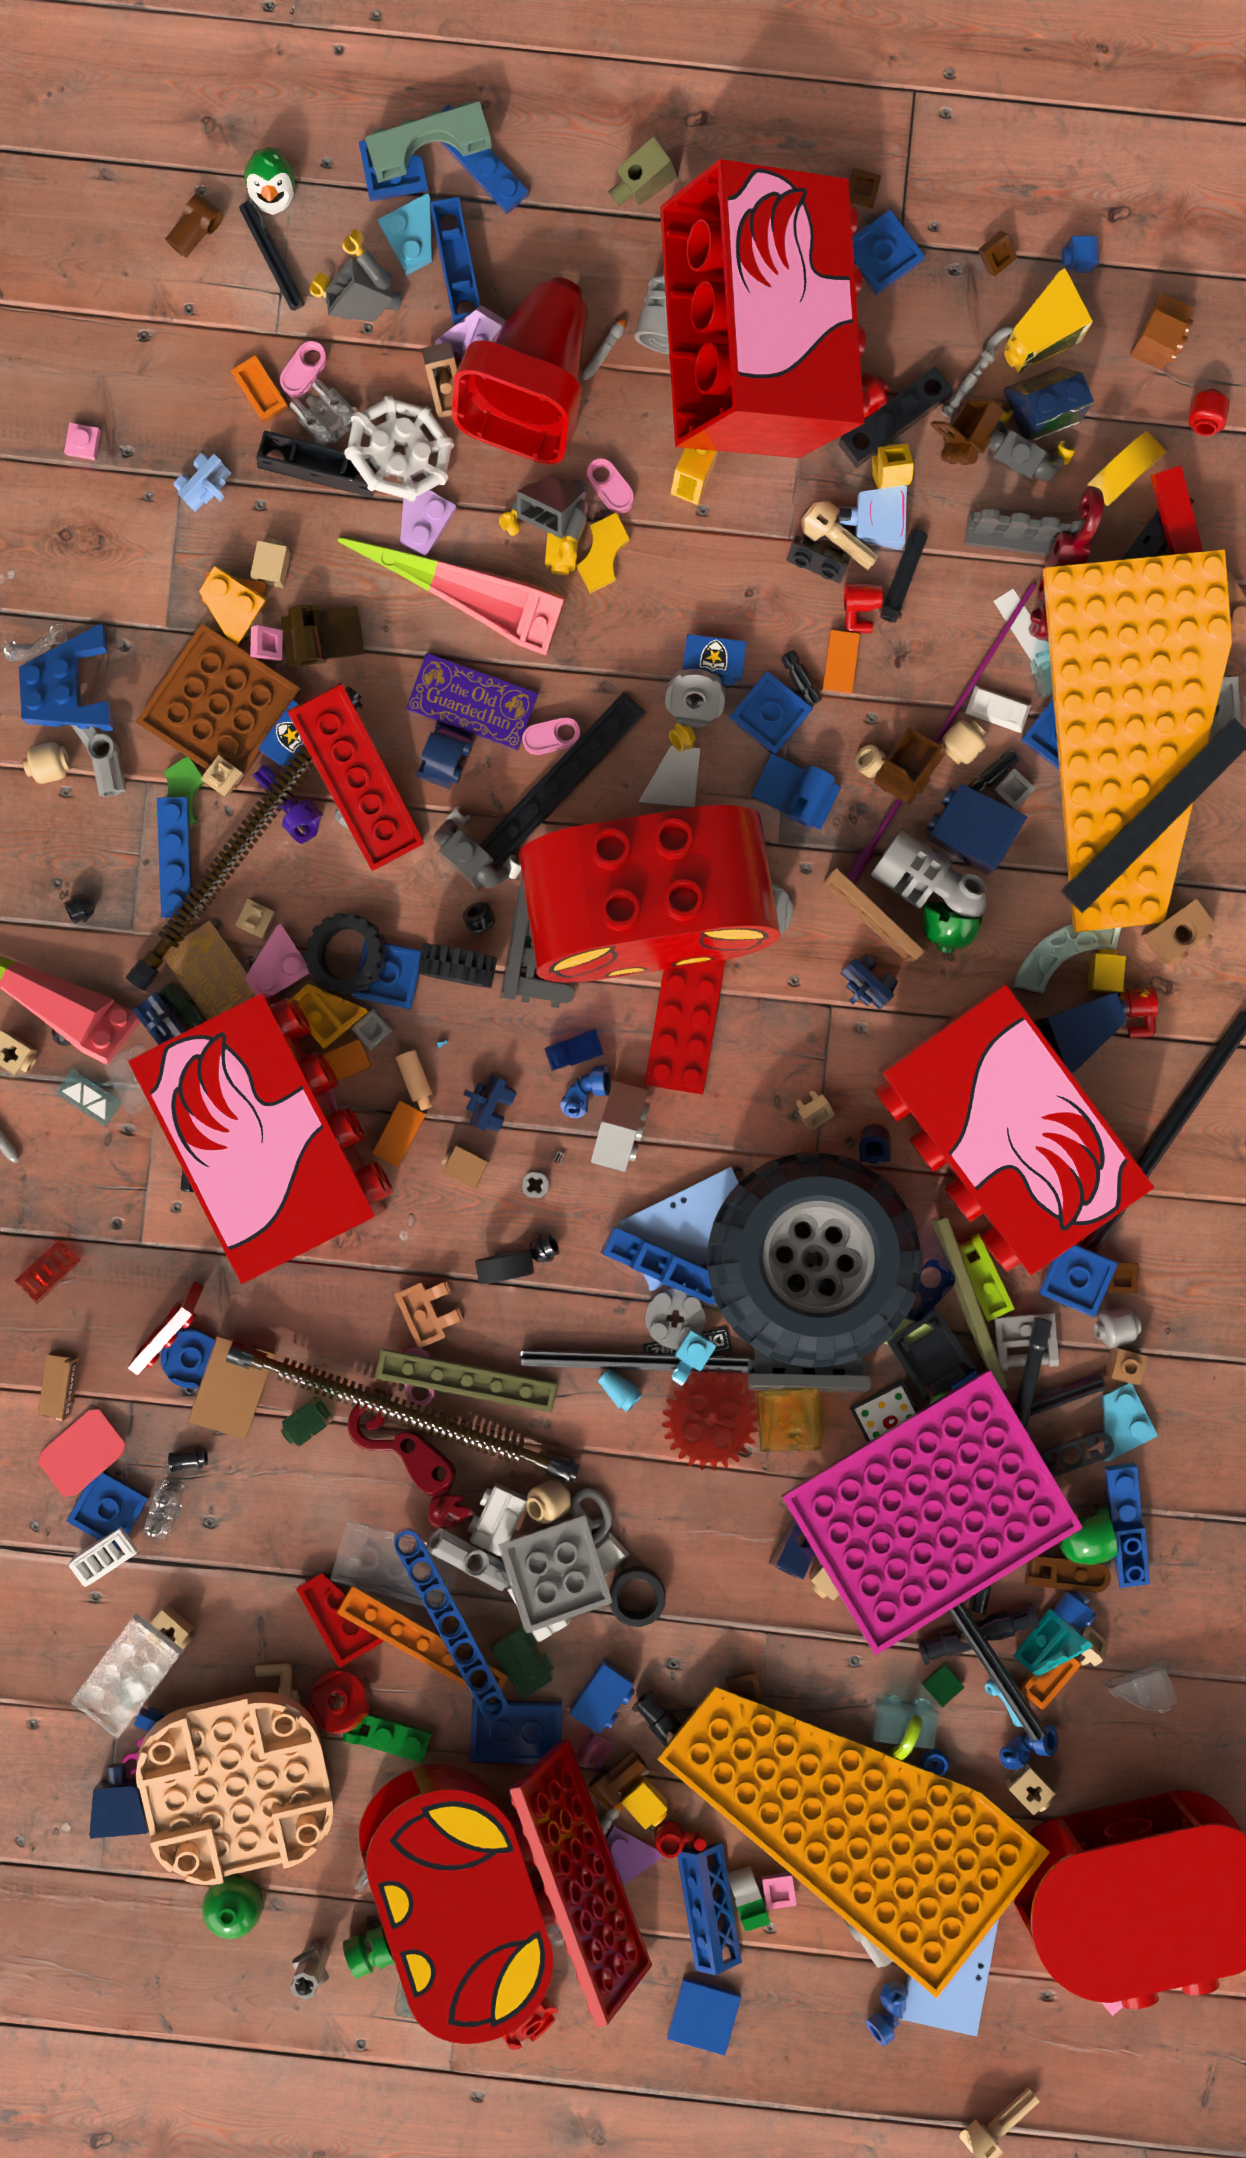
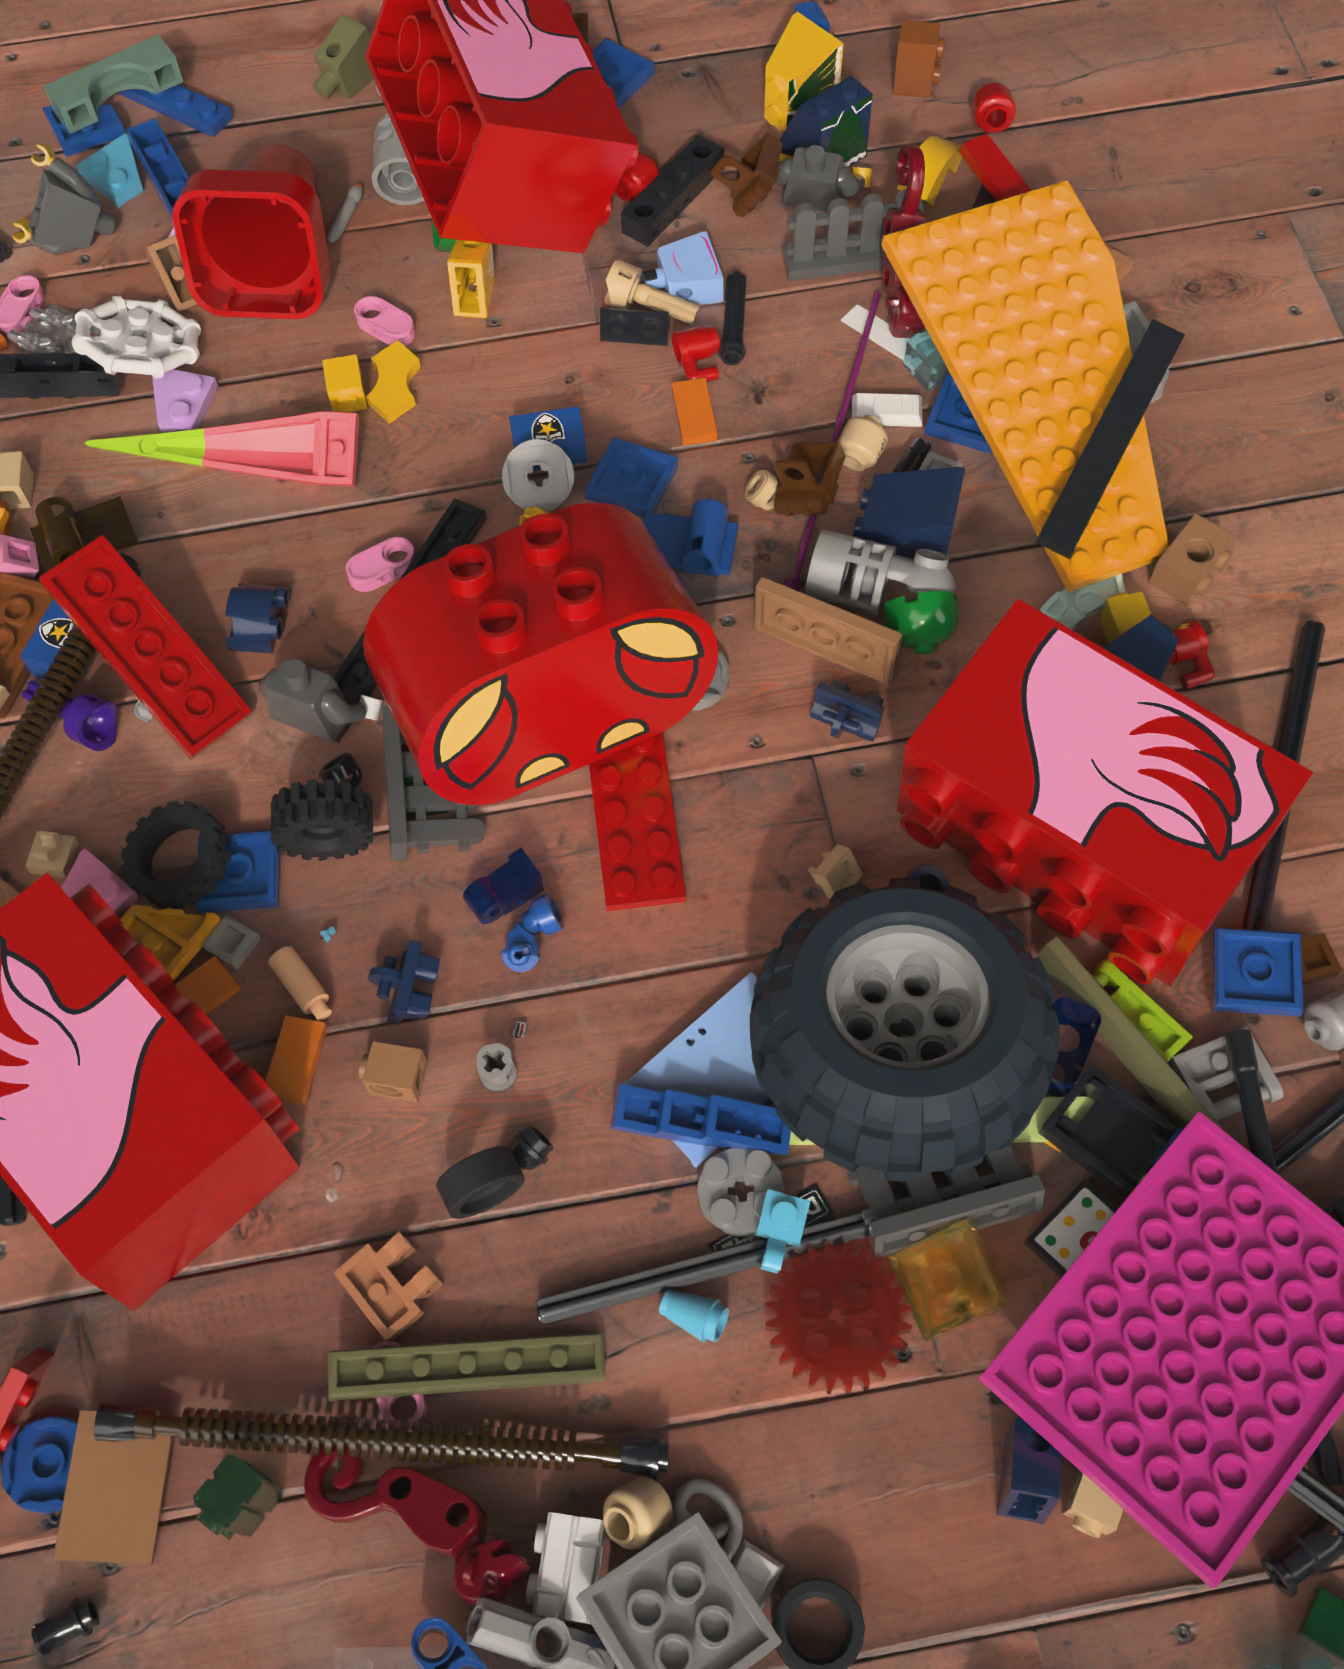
camera: 15 degrees left, 25 degrees down
(472, 701) = (277, 555): dark purple tile -> none
(553, 507) = (315, 342): dark grey torso -> none
(621, 1126) = (586, 950): light grey brick -> none
(801, 678) = (654, 435): black axle -> none
(892, 466) = (686, 208): yellow brick -> none
(971, 378) = (749, 123): light grey piece -> none
(997, 253) = (726, 43): reddish brown plate -> none

